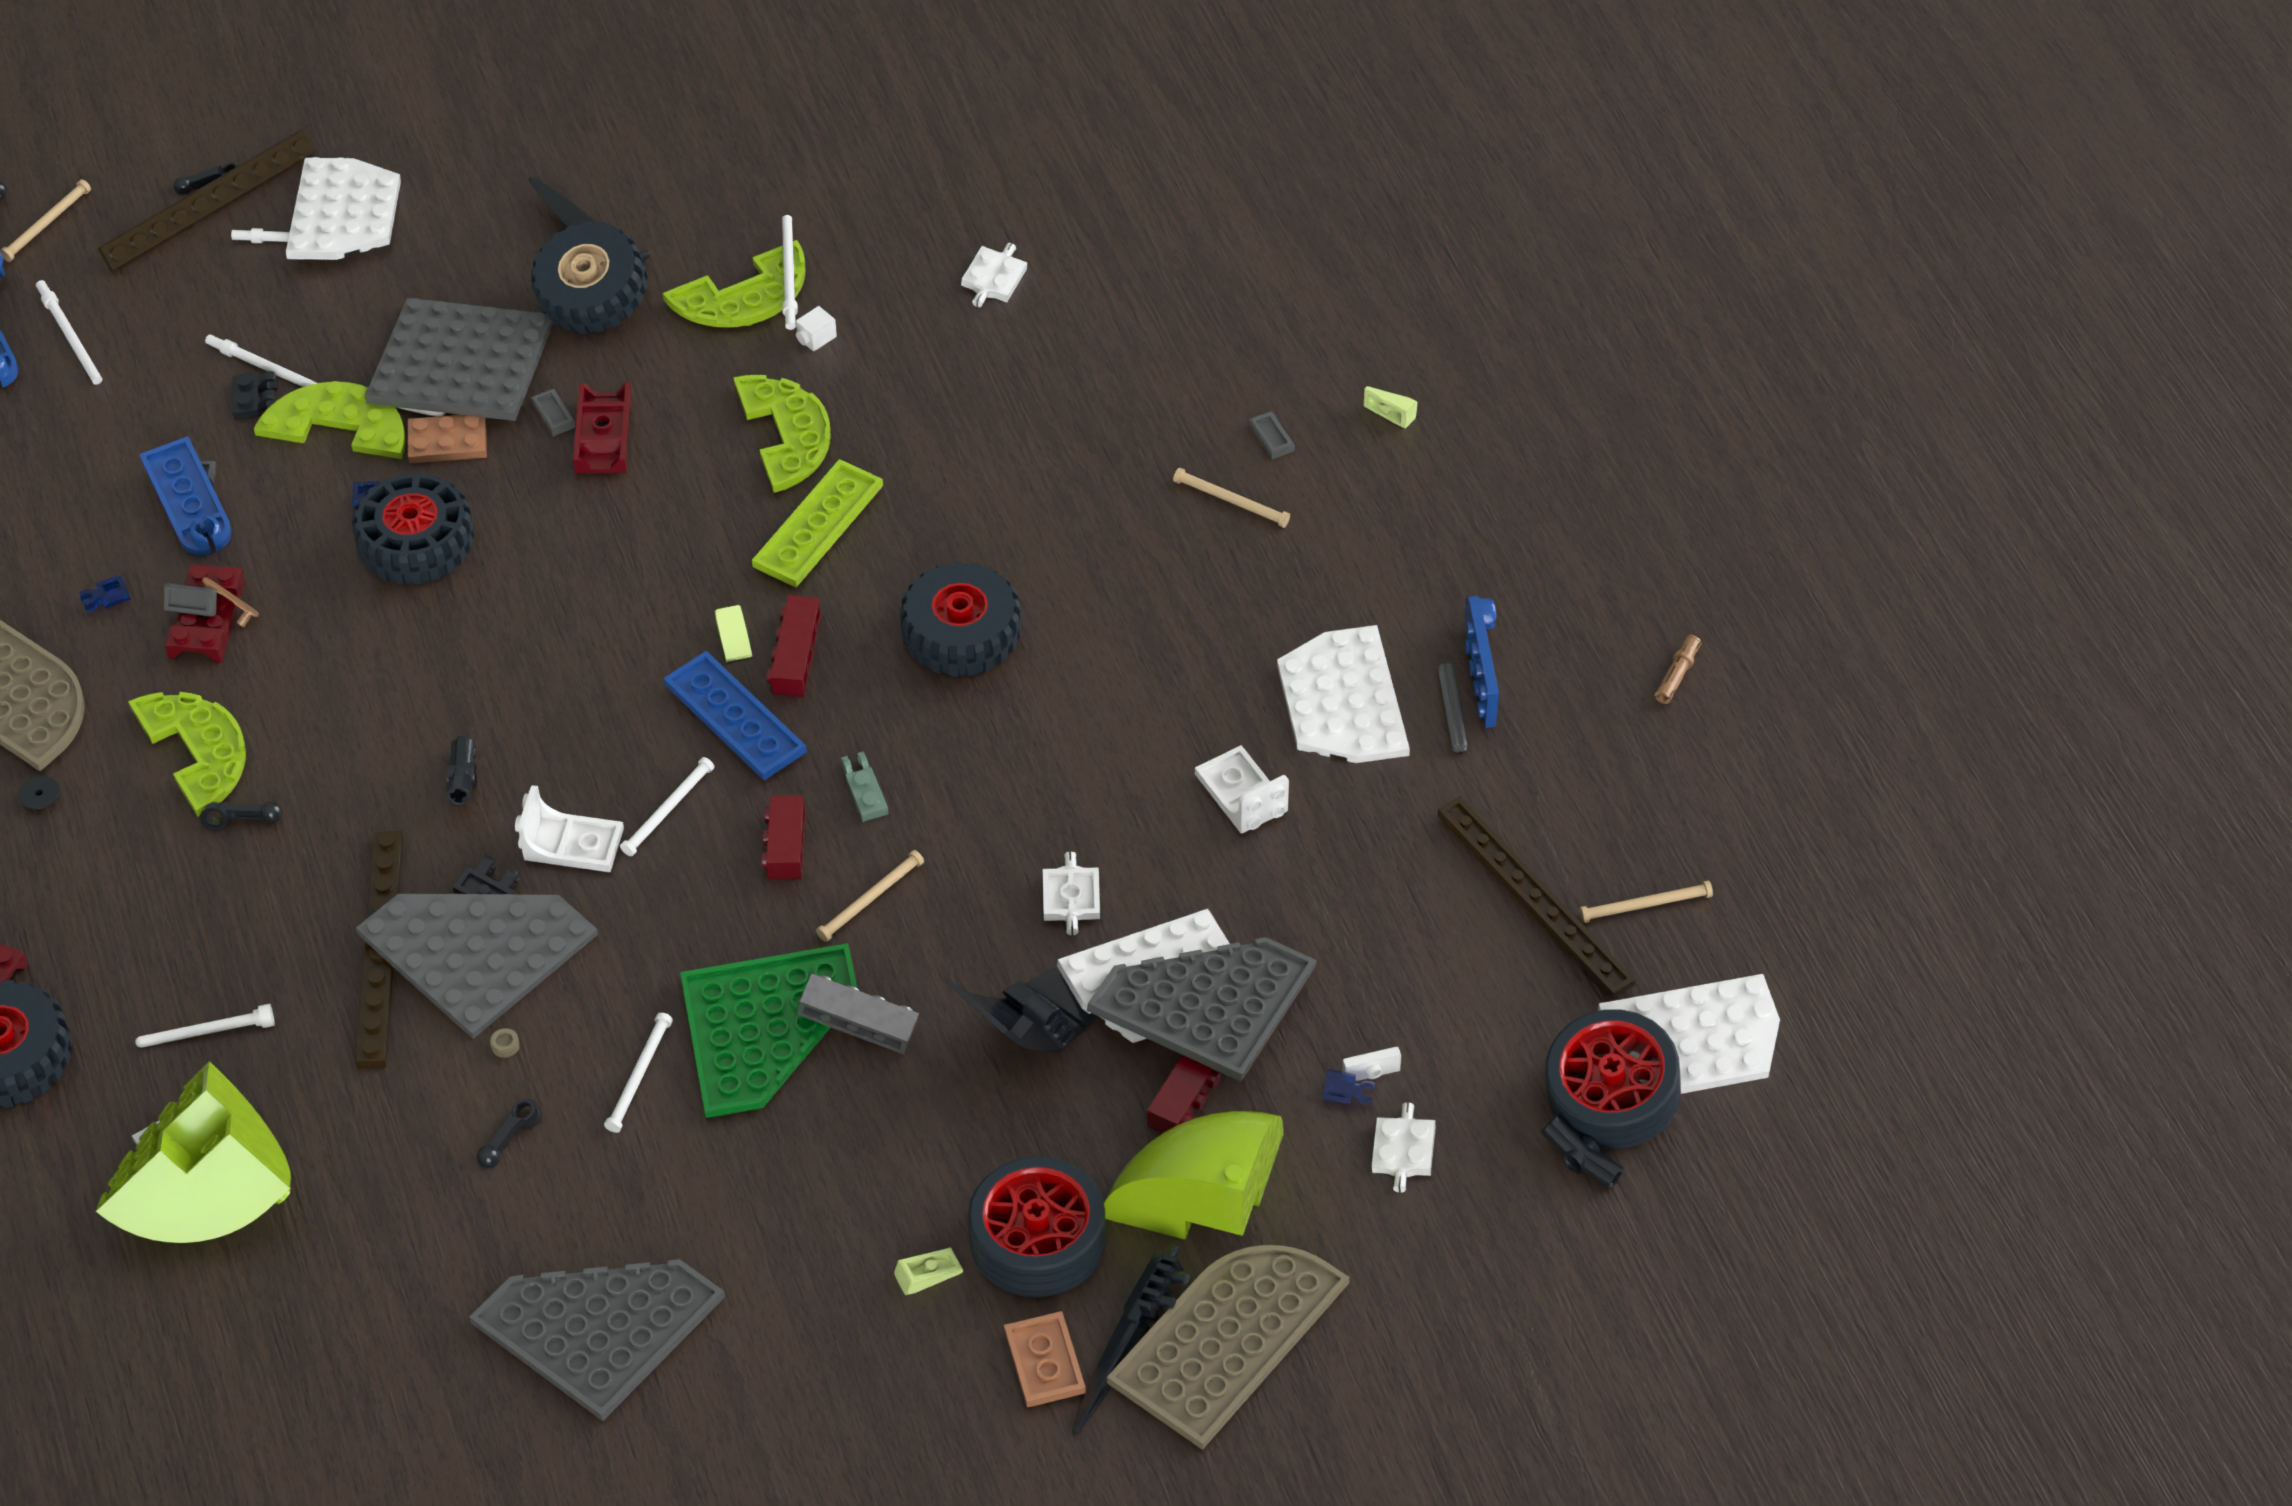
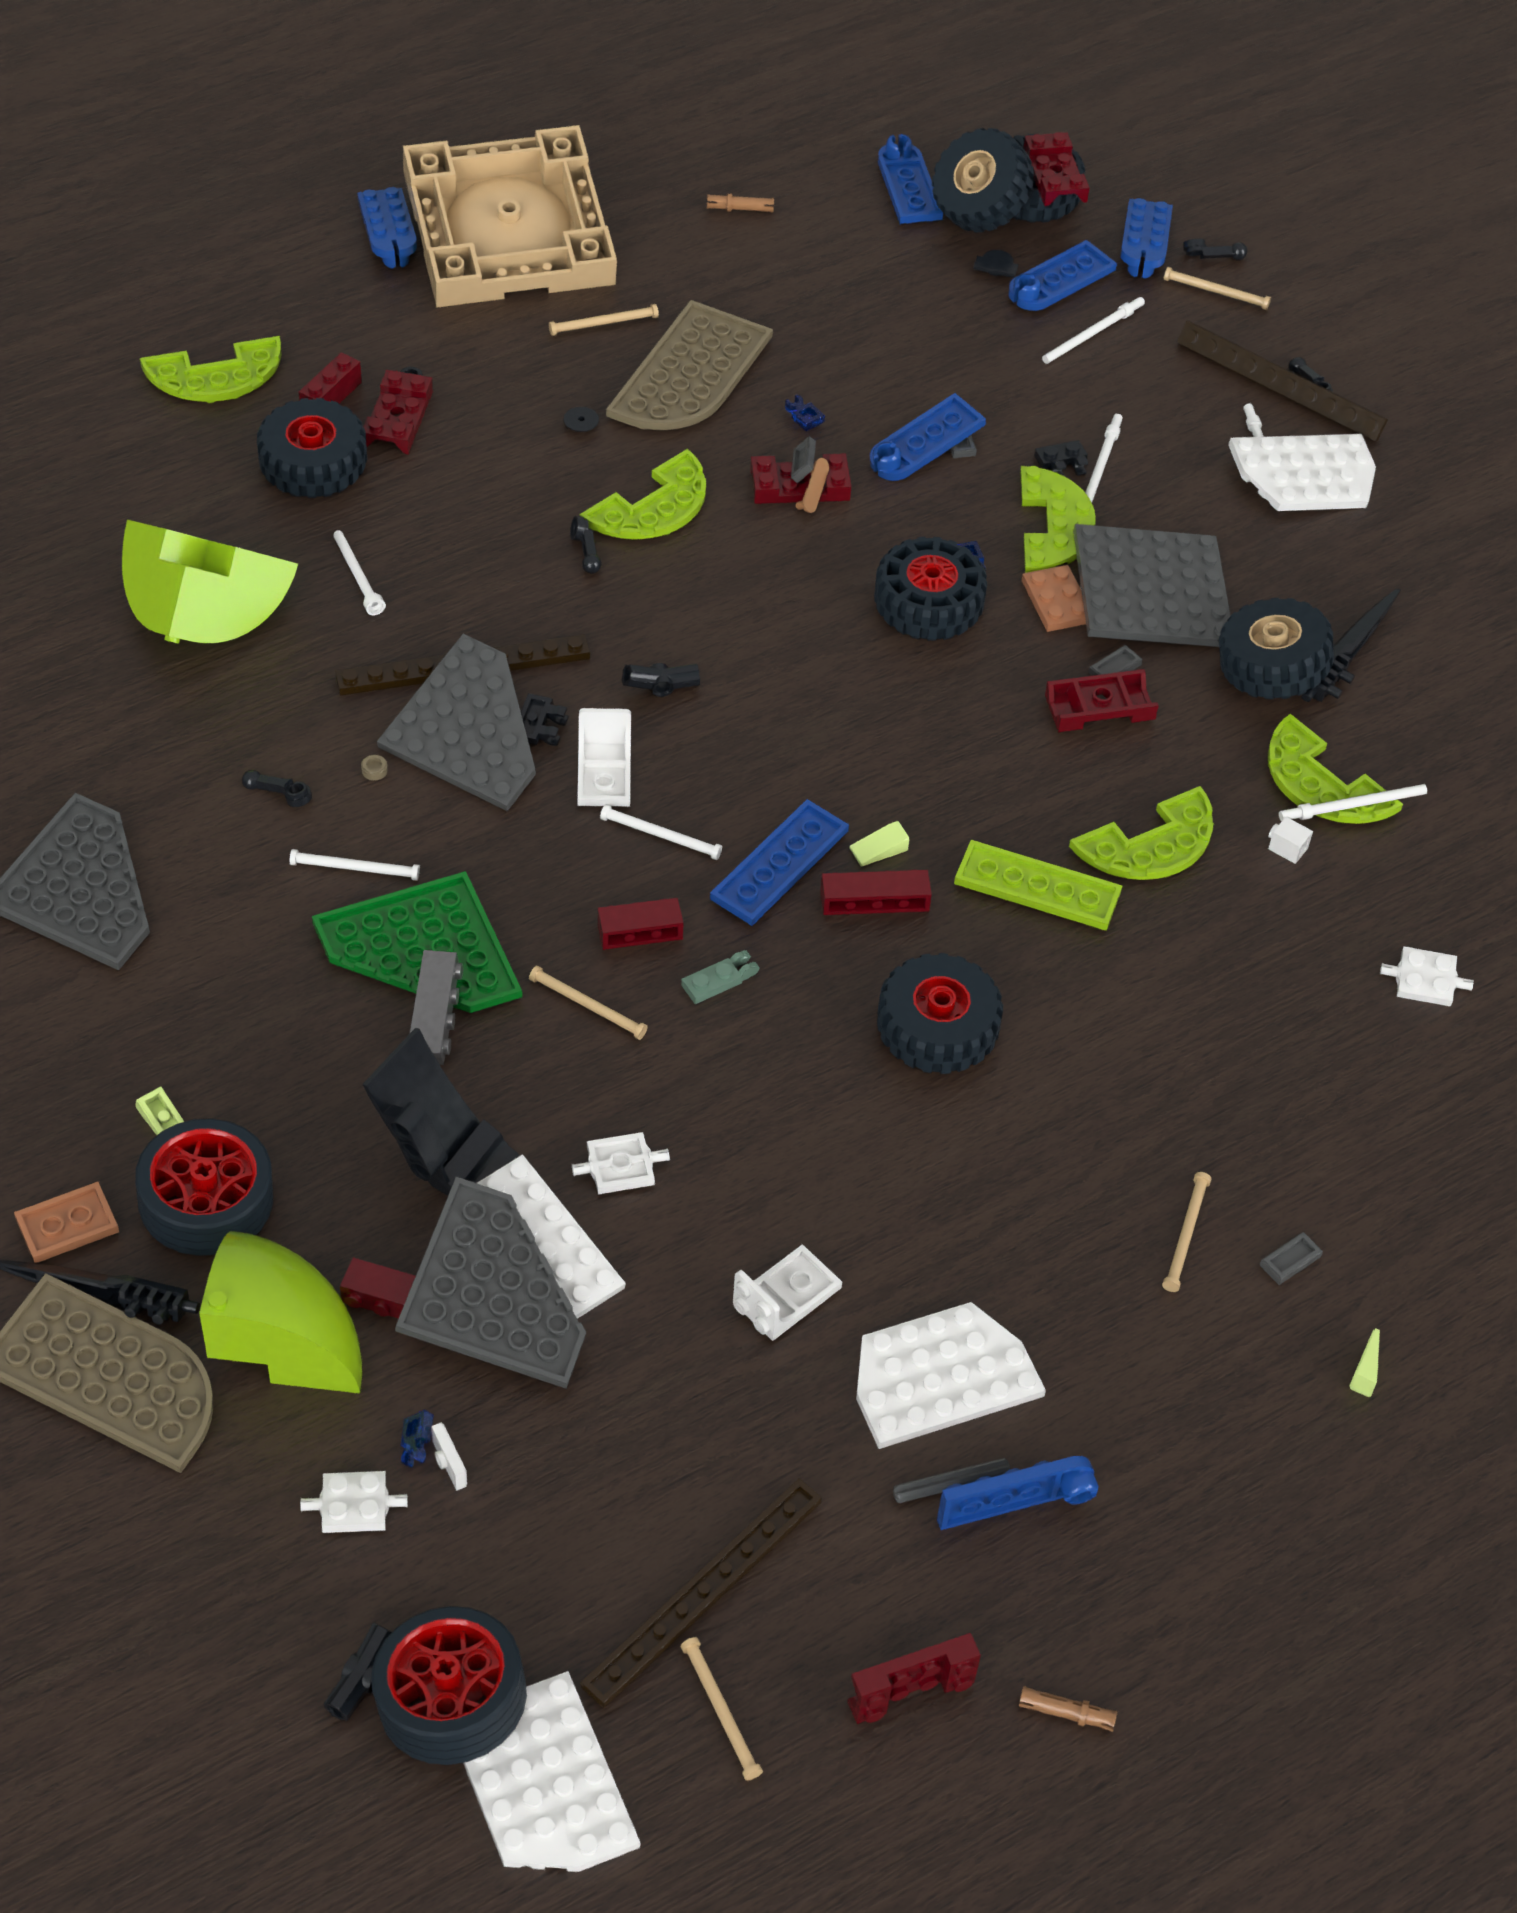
camera: 75 degrees right, 0 degrees up
(1651, 775) = (949, 1662): none -> dark red piece

